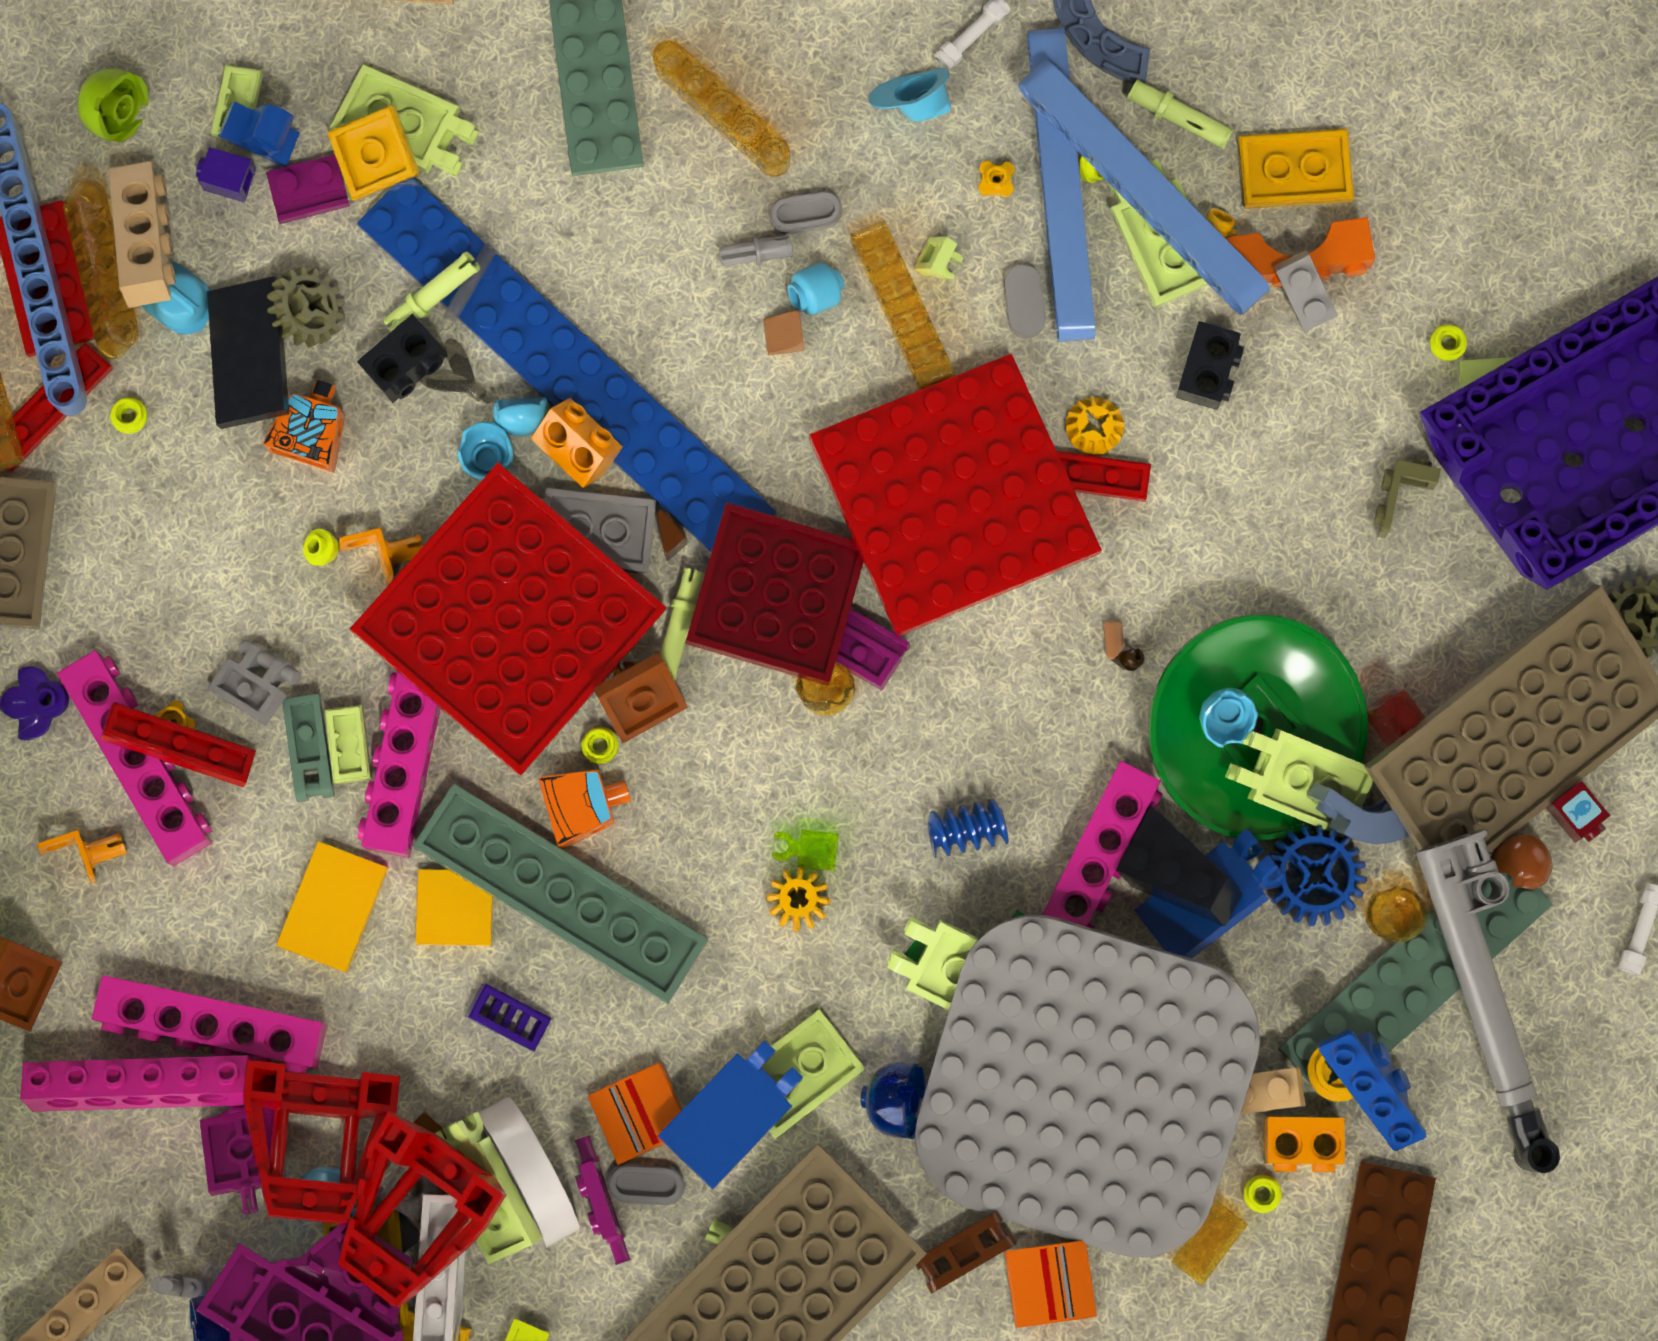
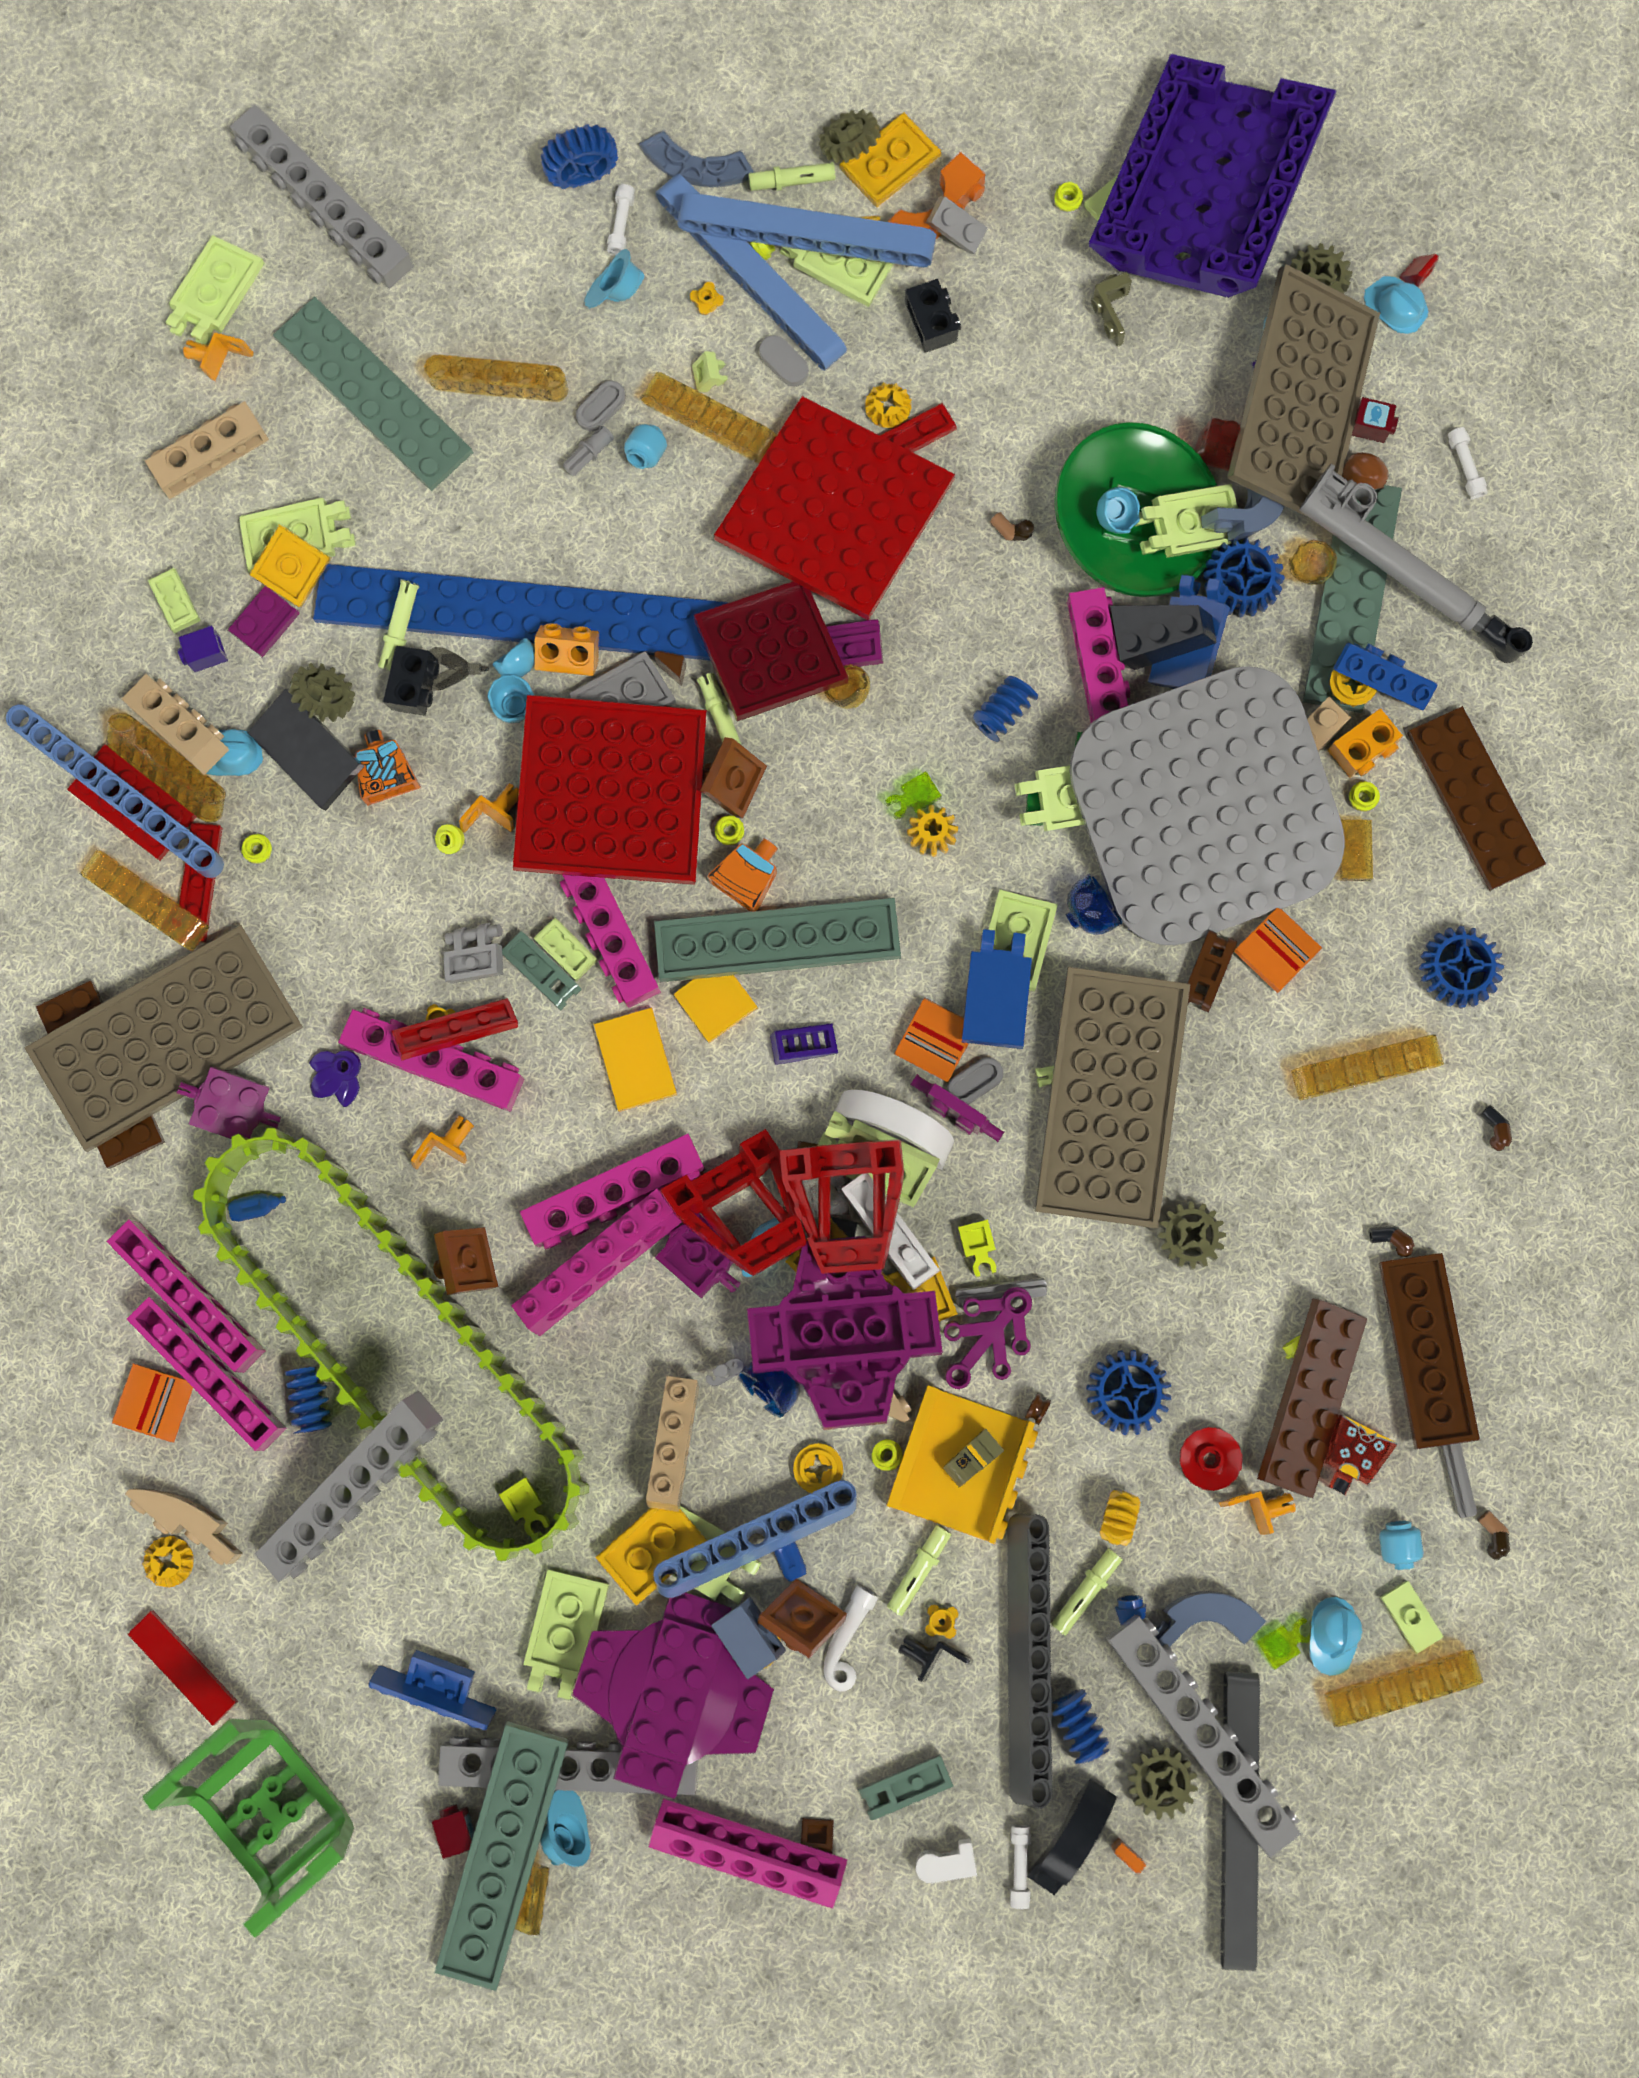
camera: 35 degrees left, 0 degrees up
(111, 103) = (87, 654): lime cylinder -> none
(261, 131) = (206, 602): blue tile -> none
(472, 285) = (415, 580): light grey piece -> none
(784, 333) = (646, 489): medium nougat slope -> none
(1268, 116) = (849, 136): none -> olive gear

